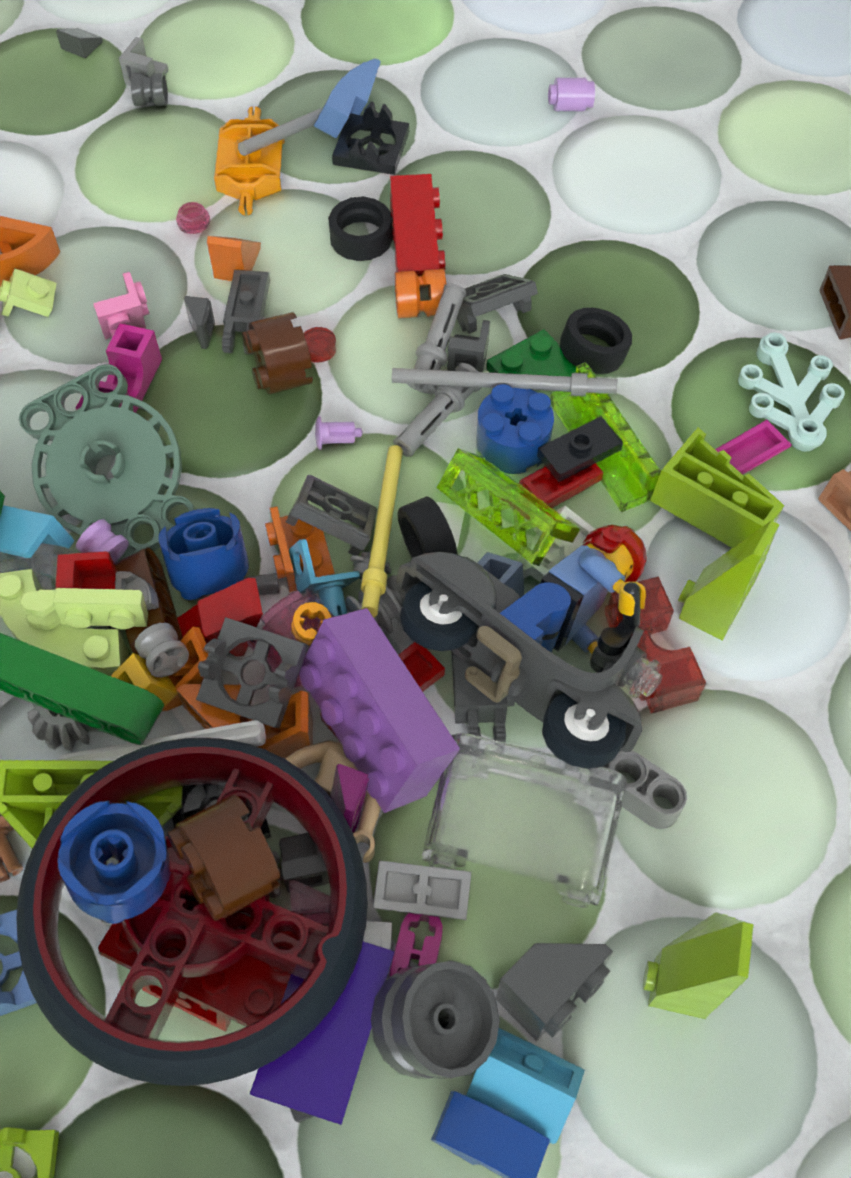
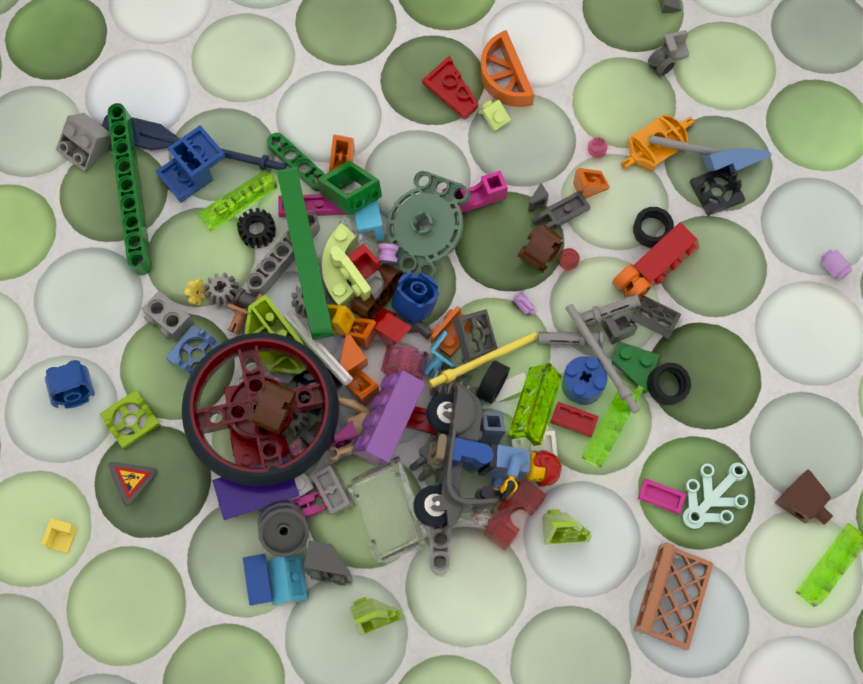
camera: 55 degrees right, 10 degrees up
(119, 832) = (236, 361): blue brick -> none
(124, 309) = (520, 166): bright pink bracket -> none
(161, 650) = (356, 315): light grey wheel -> none
(280, 682) = (352, 349): dark grey piece -> none
(311, 610) = (411, 362): light orange bush -> none
(580, 448) = (594, 417): black plate -> none
(713, 494) = (615, 494): lime wedge -> none

